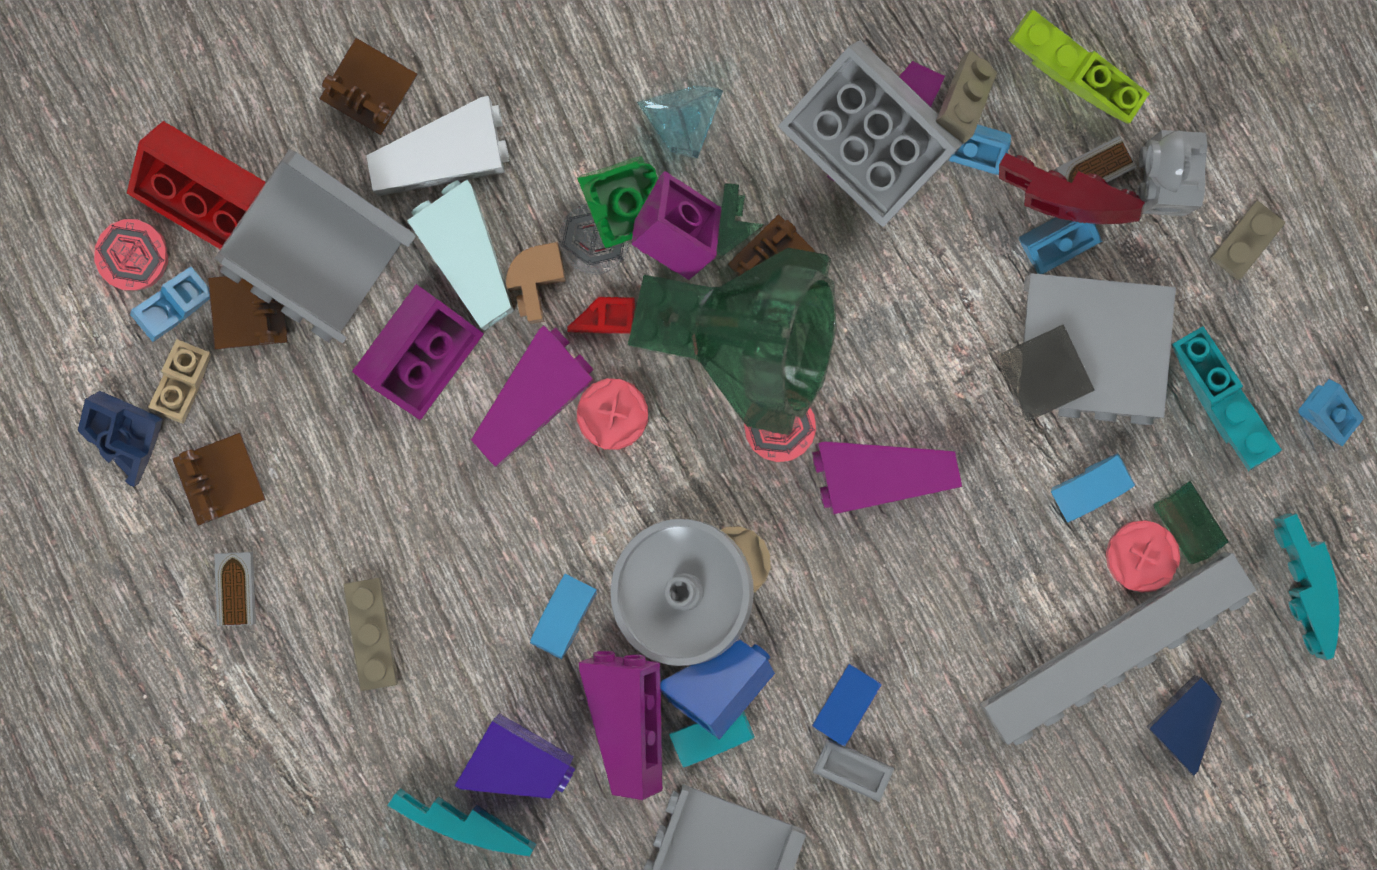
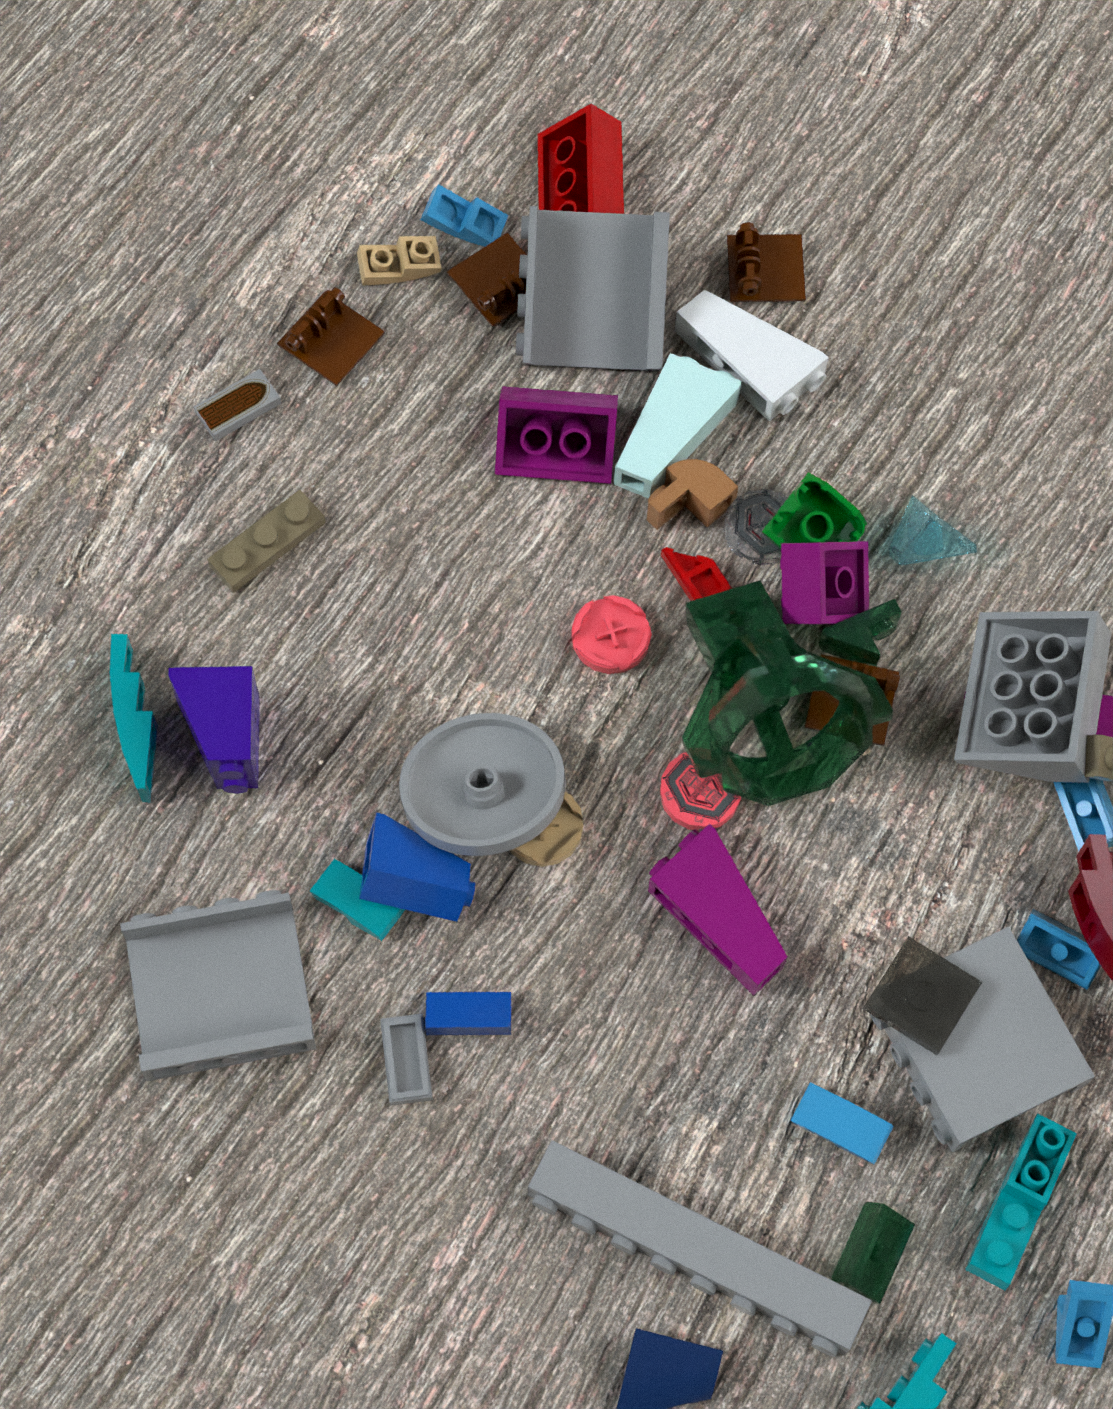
camera: 50 degrees right, 20 degrees down
(120, 433) = (321, 239): dark blue slope -> none
(131, 255) = (486, 164): tile -> none
(532, 396) = (580, 550): magenta slope -> none
(562, 616) = (391, 692): dark azure slope -> none
(627, 720) = (324, 805): magenta slope -> none
(1142, 556) = (807, 1221): coral tile -> none

